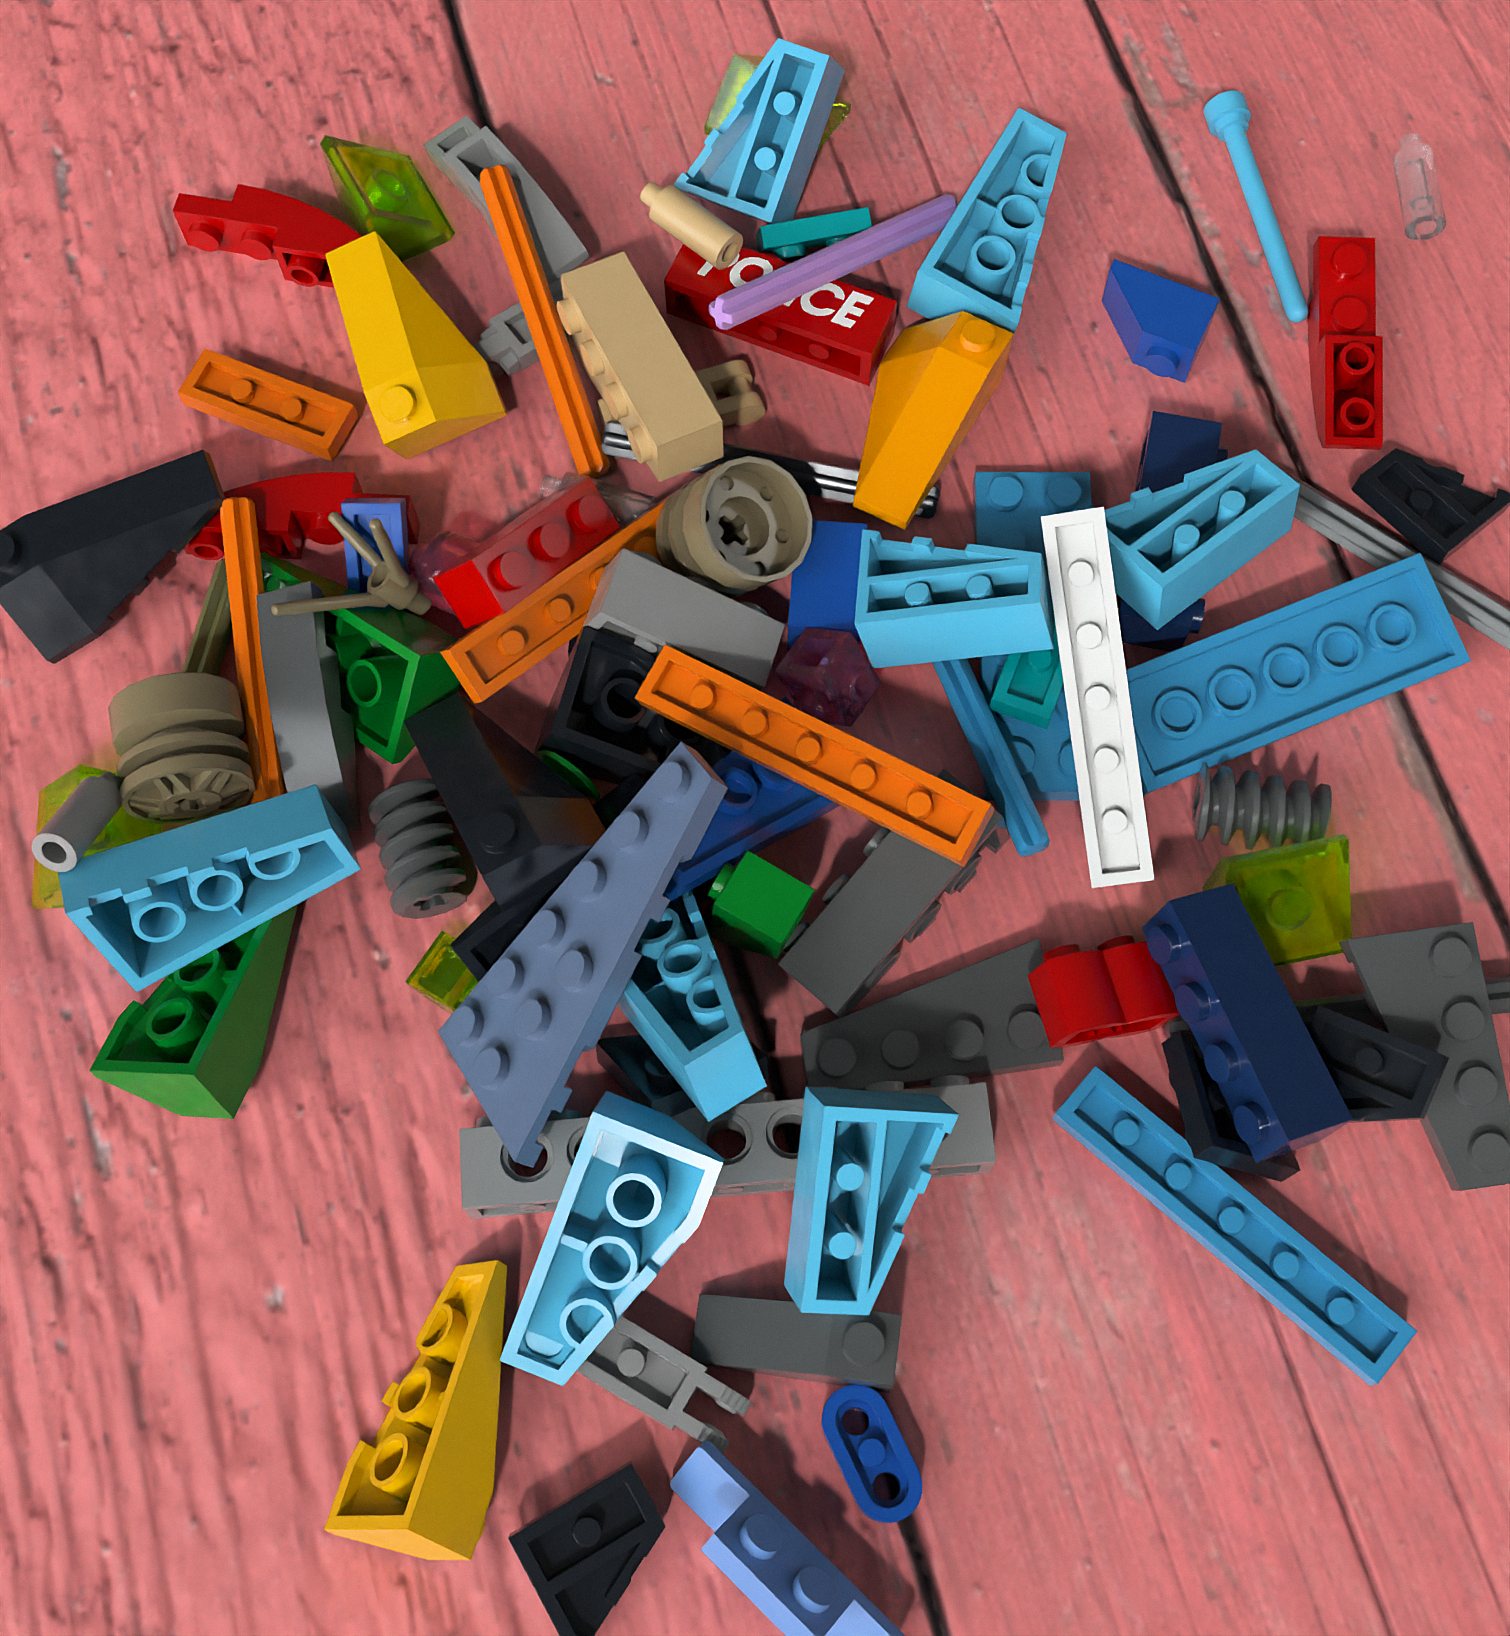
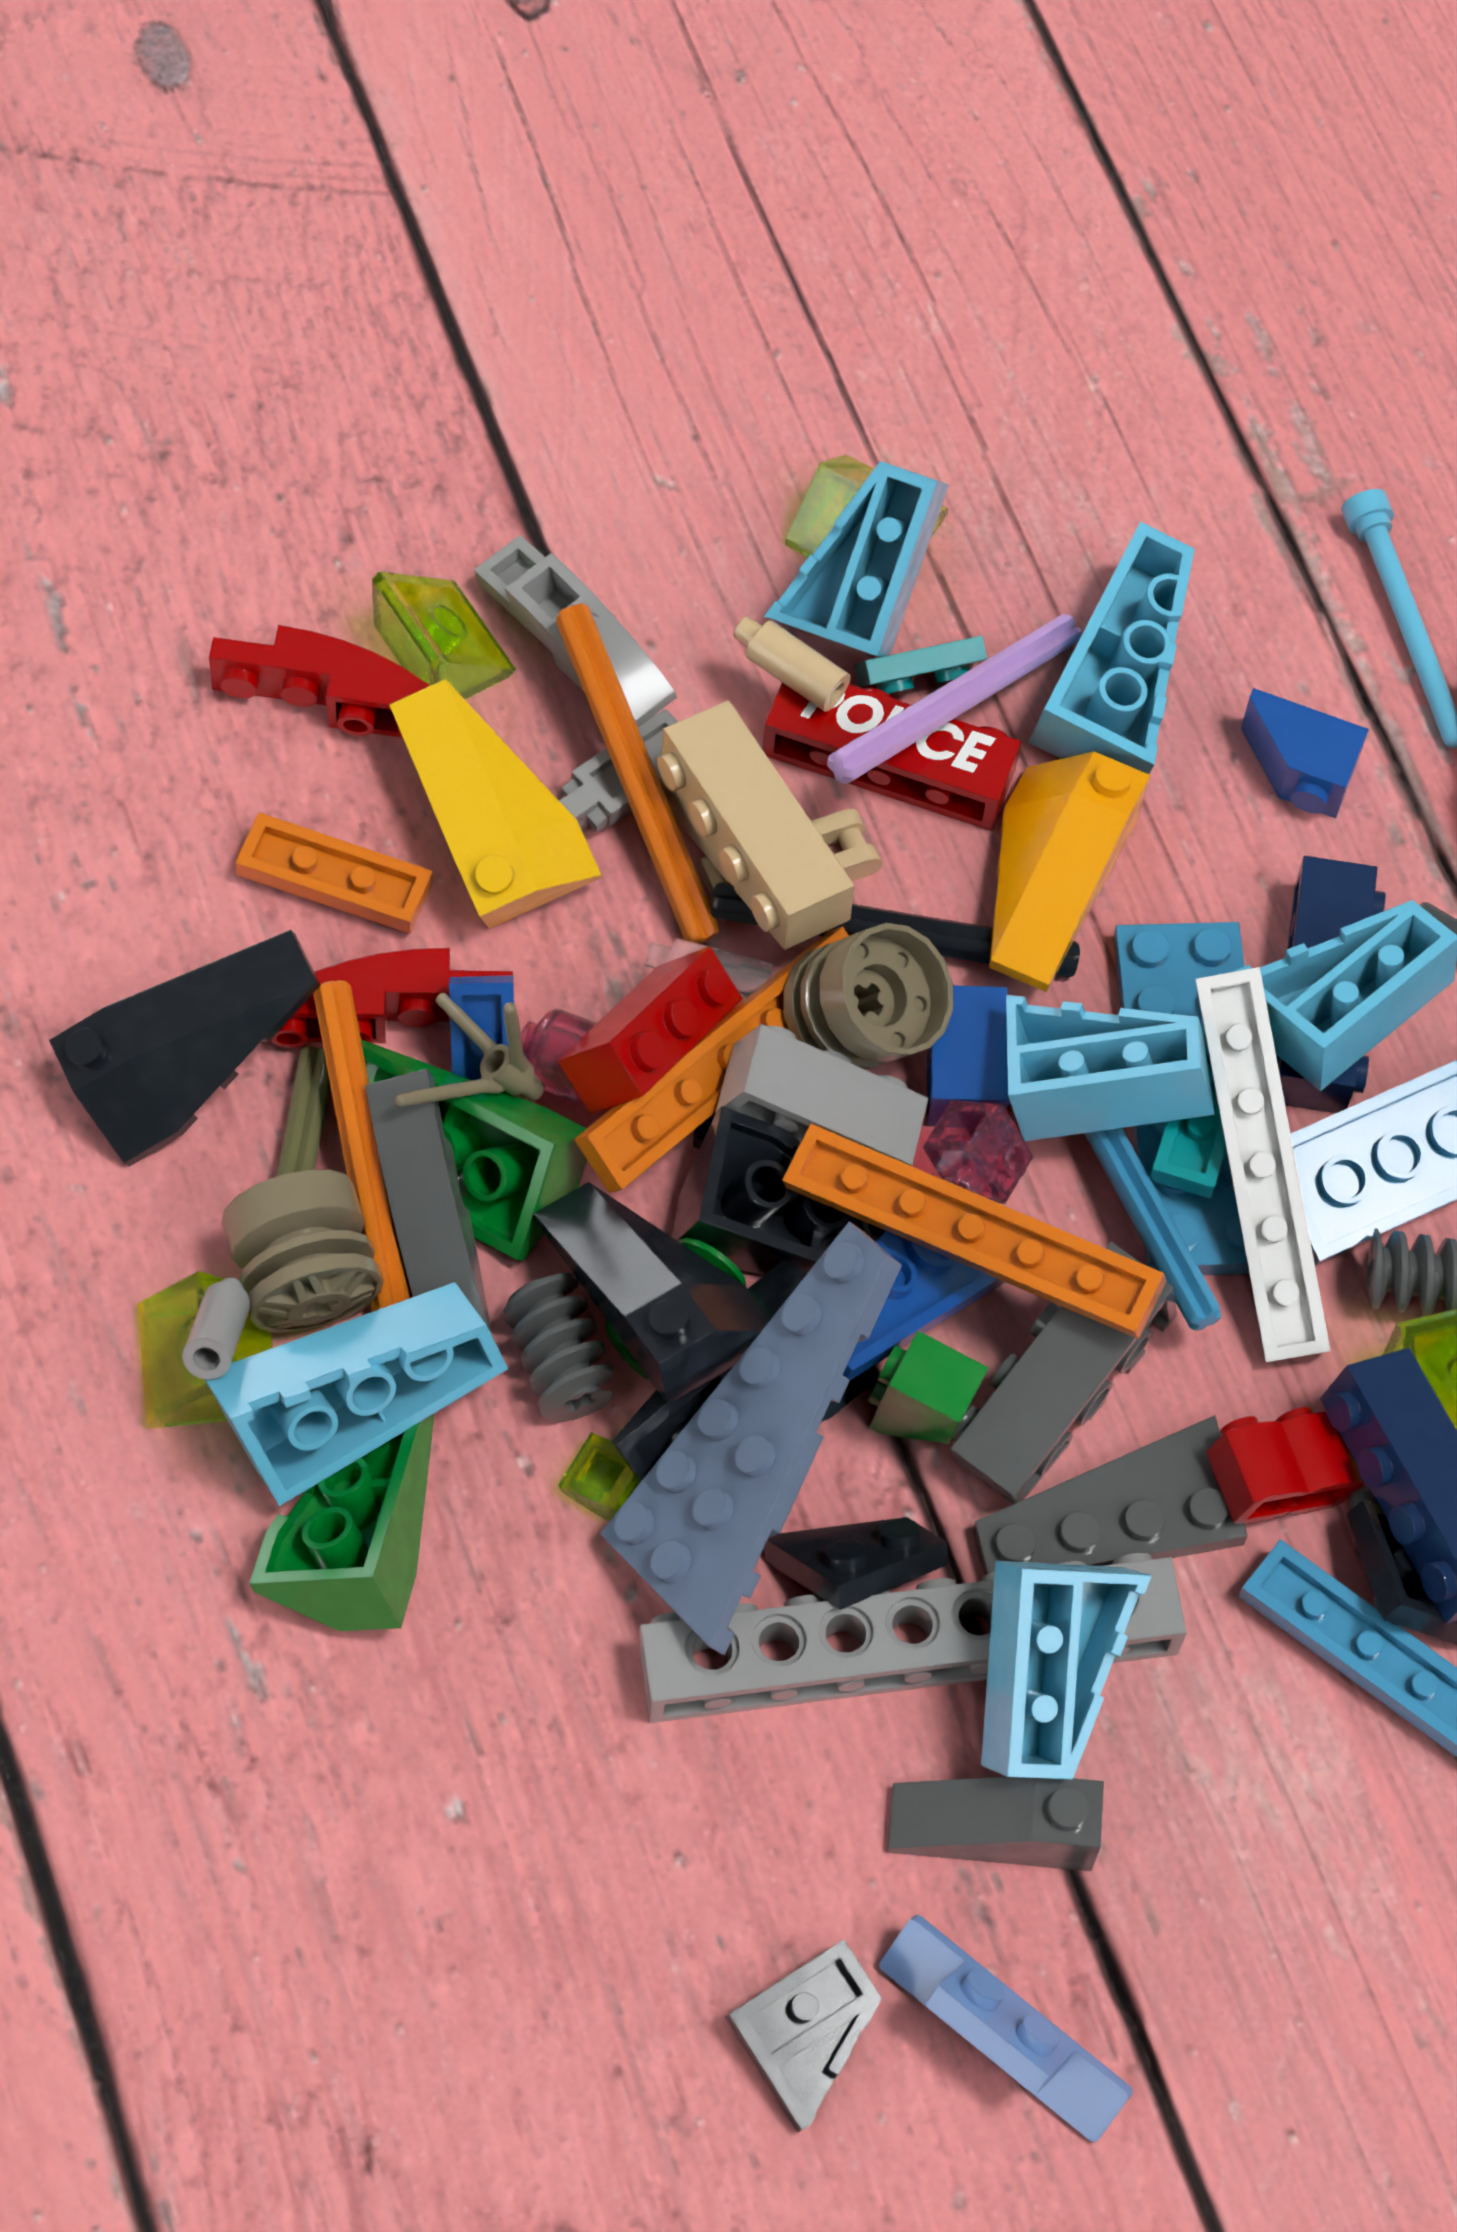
camera: 10 degrees left, 5 degrees down
(433, 1458) = (643, 1942): yellow wedge -> none
(618, 1221) = (816, 1702): medium azure wedge -> none
(658, 1380) = (848, 1858): light grey hinge -> none
(688, 1010) = (875, 1495): medium azure wedge -> none
(871, 1453) = (1081, 1925): blue plate -> none

